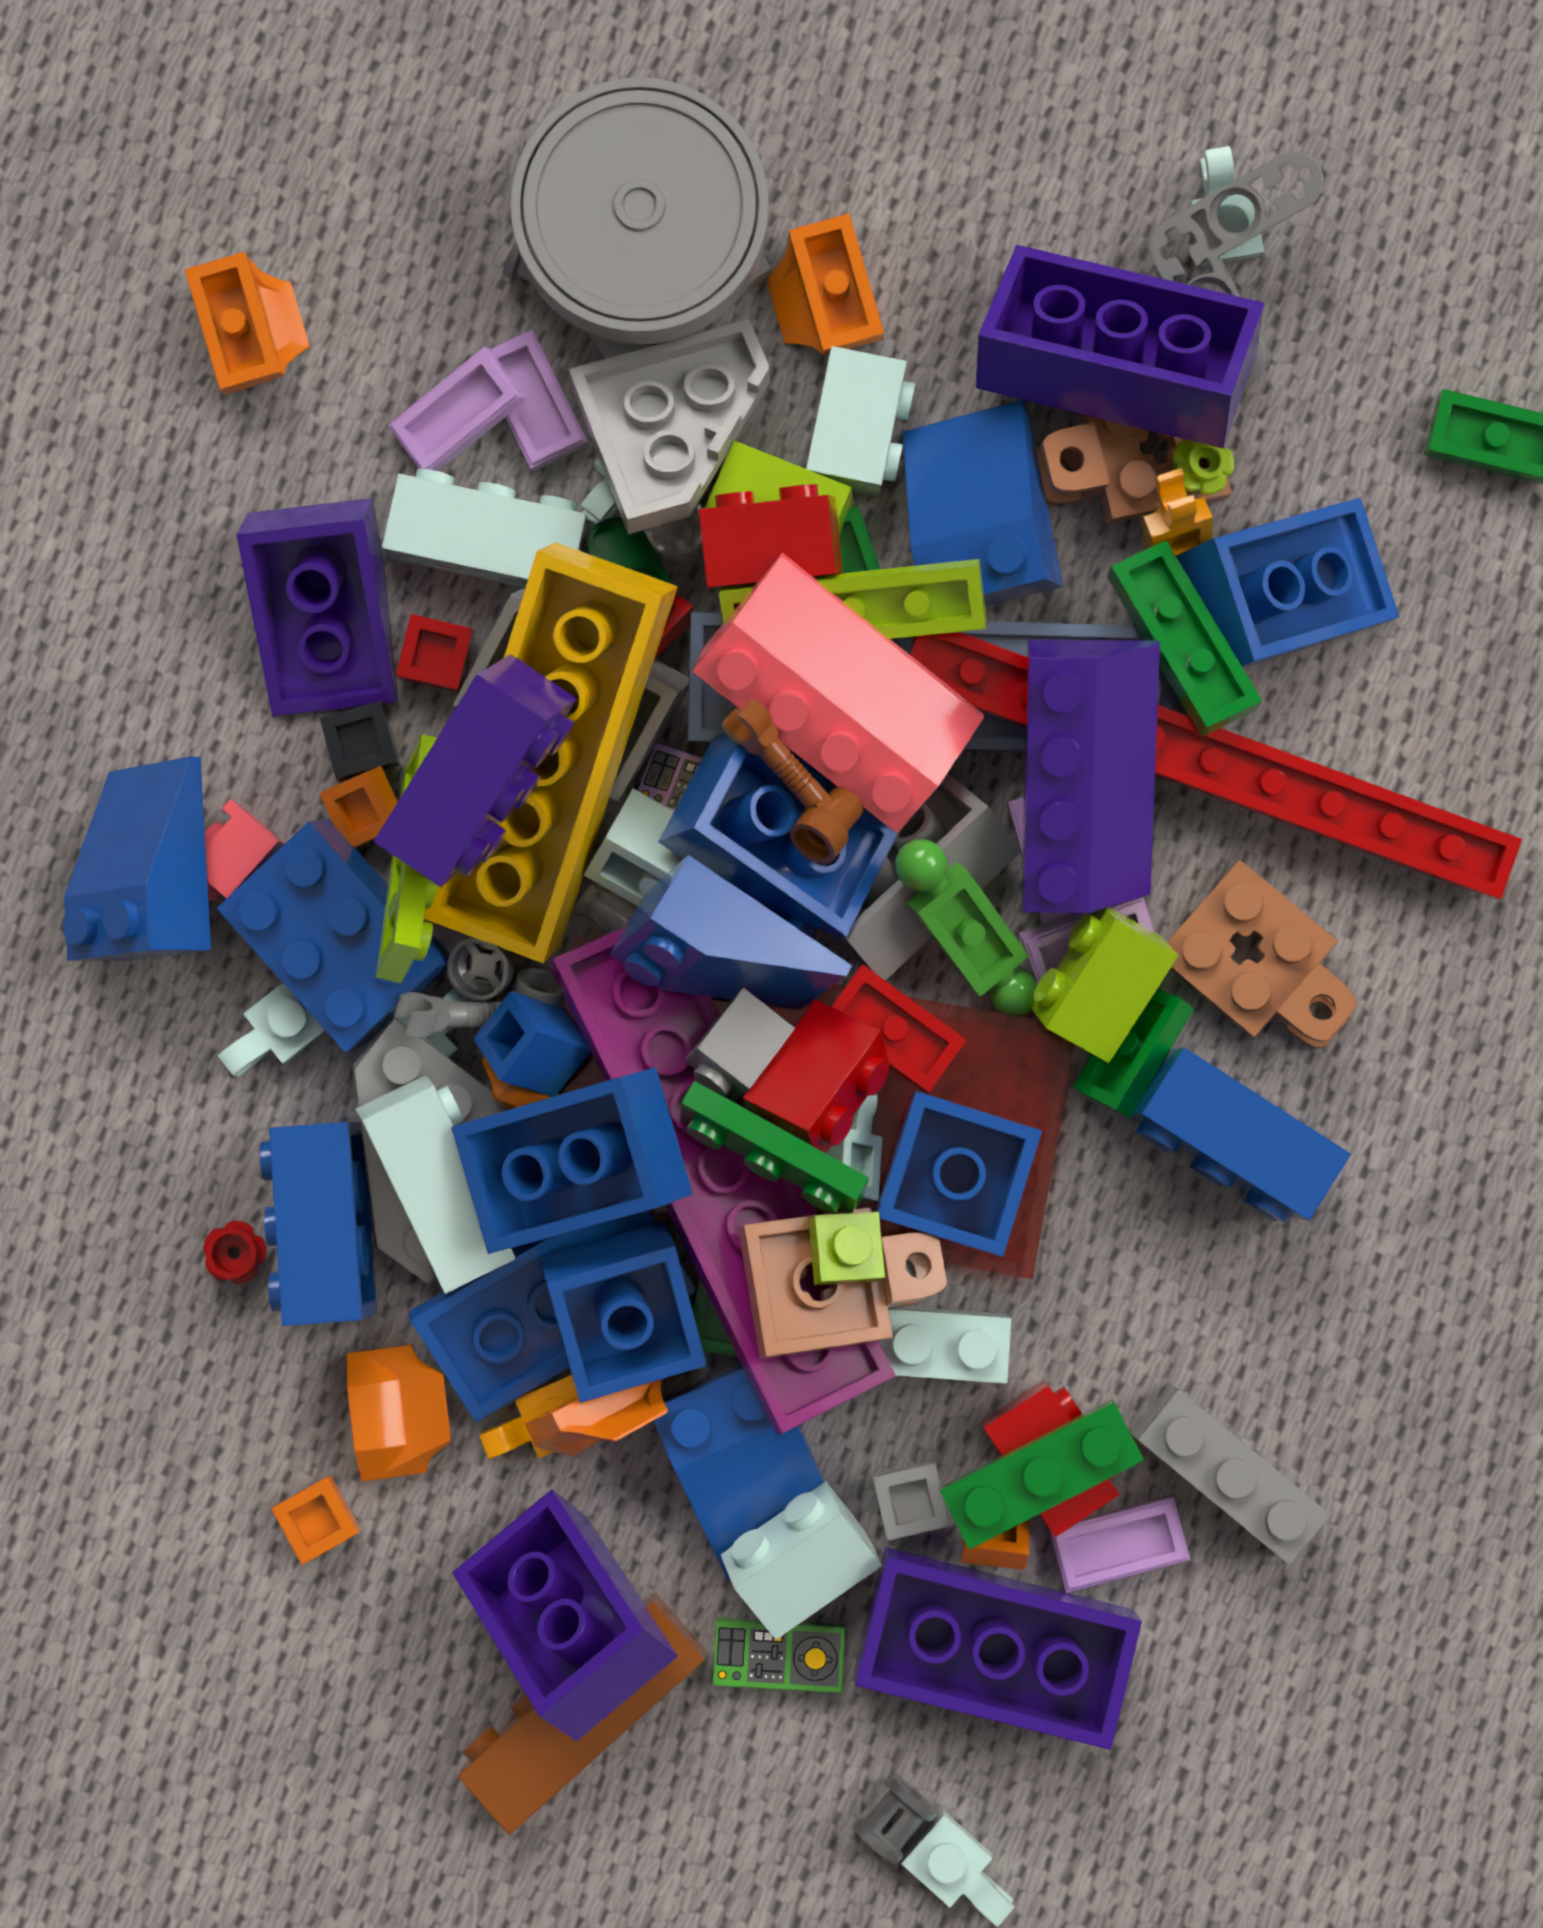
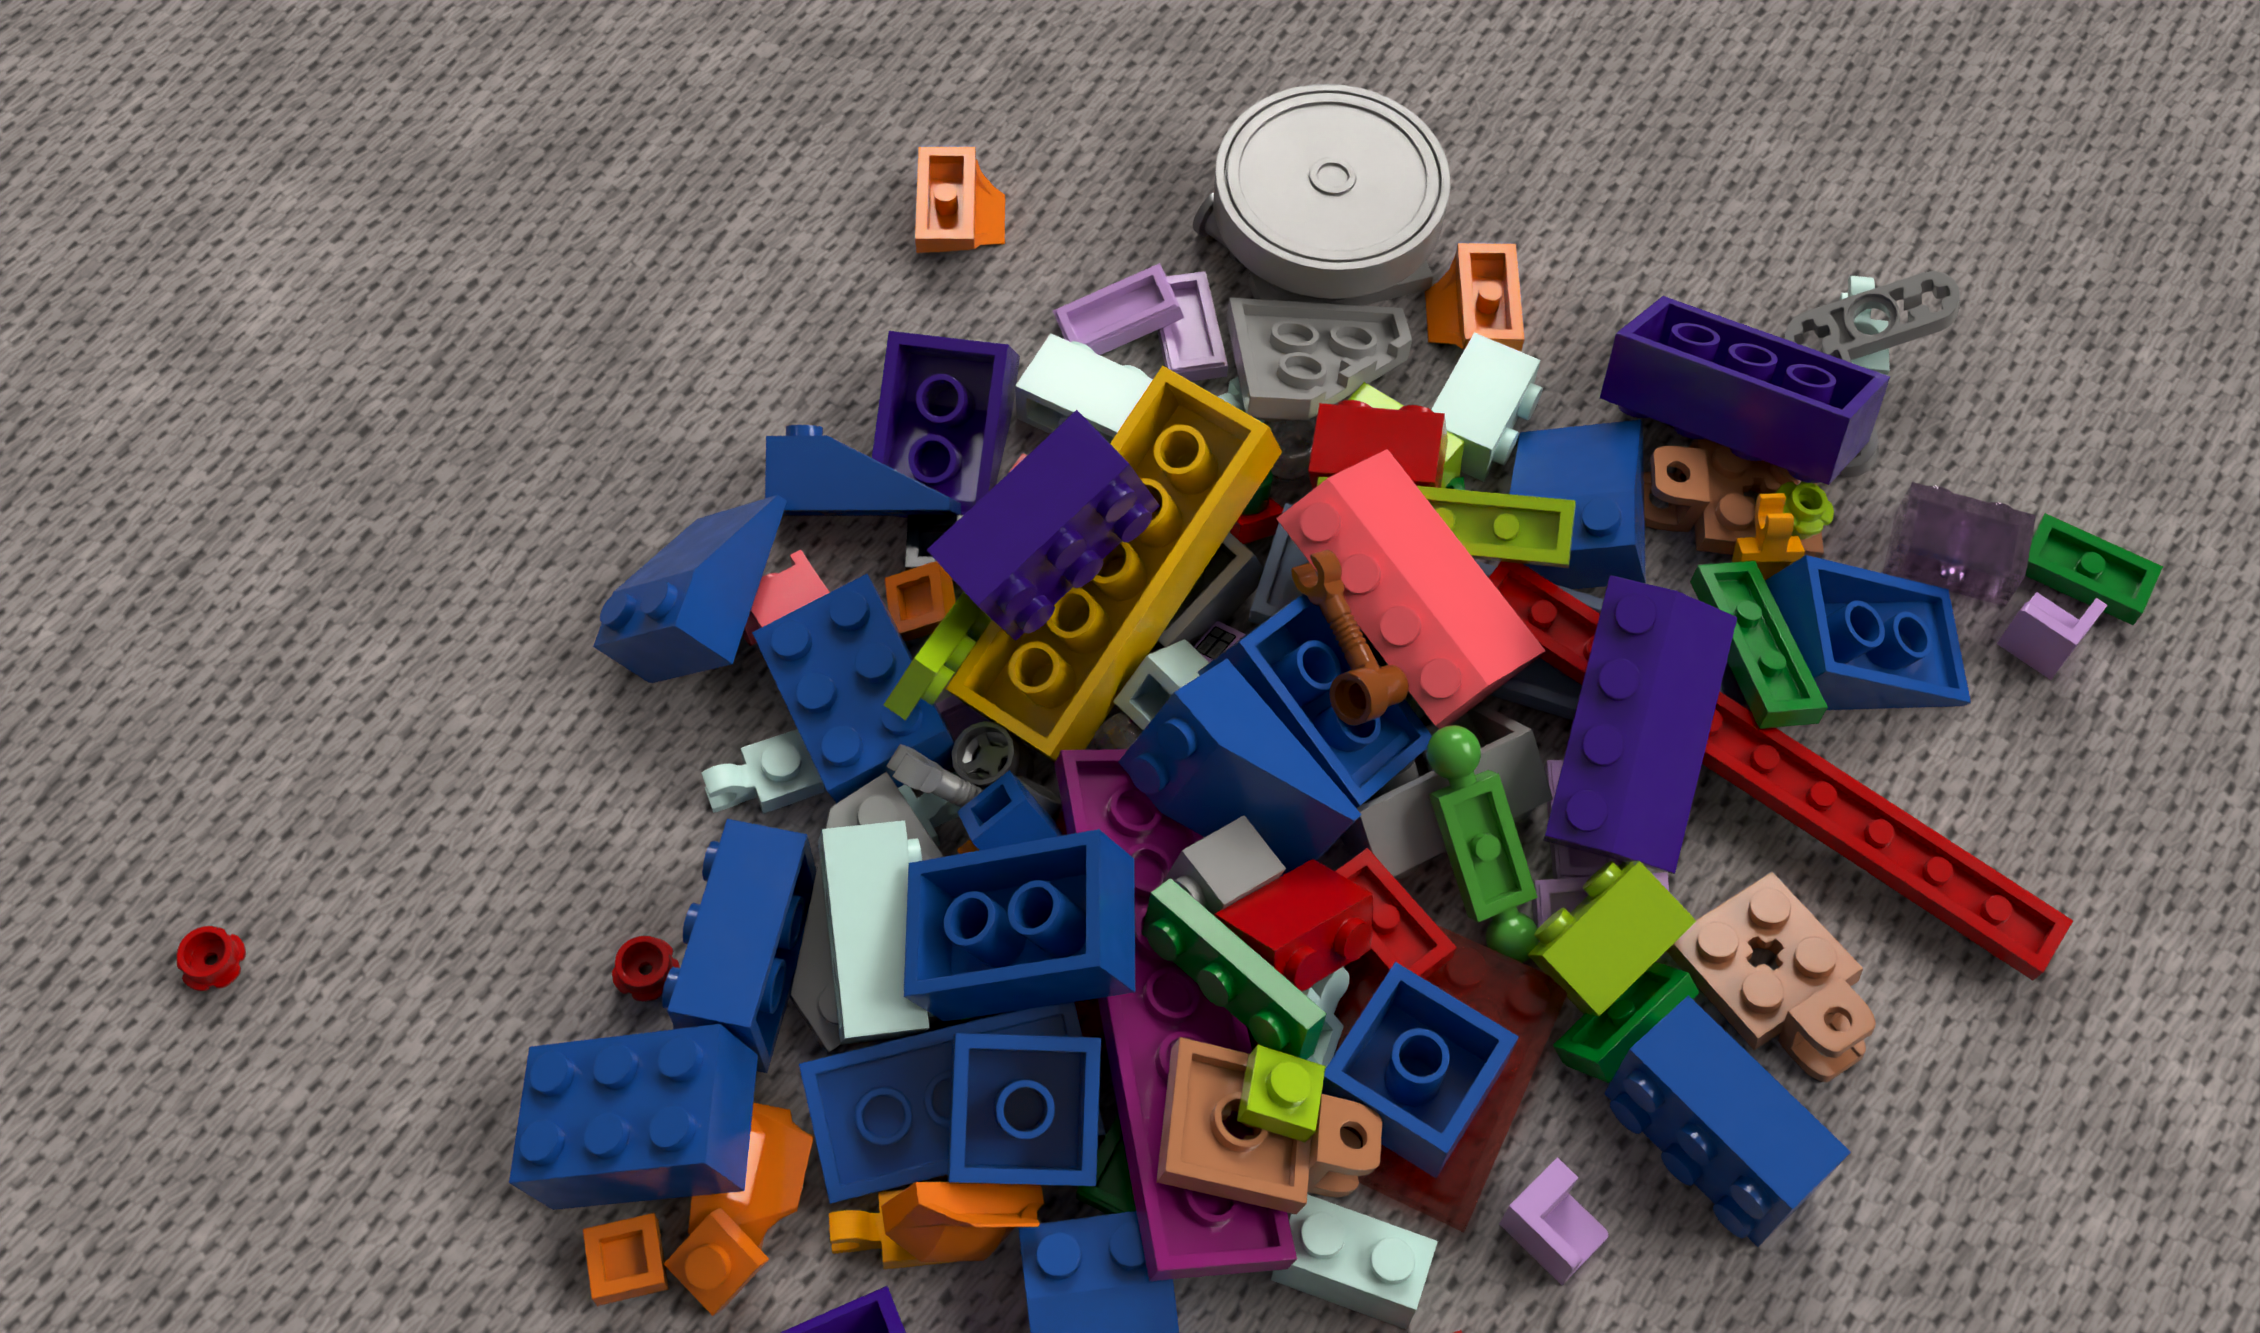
camera: 15 degrees right, 25 degrees down
(246, 703) = (835, 480): none -> blue slope
(283, 1409) = (635, 1118): none -> blue brick
(395, 1500) = (716, 1261): none -> orange plate
(1109, 1254) = (1553, 1223): none -> lavender panel
(1363, 445) = (1960, 543): none -> clear purple brick
(1464, 522) = (2047, 634): none -> lavender panel

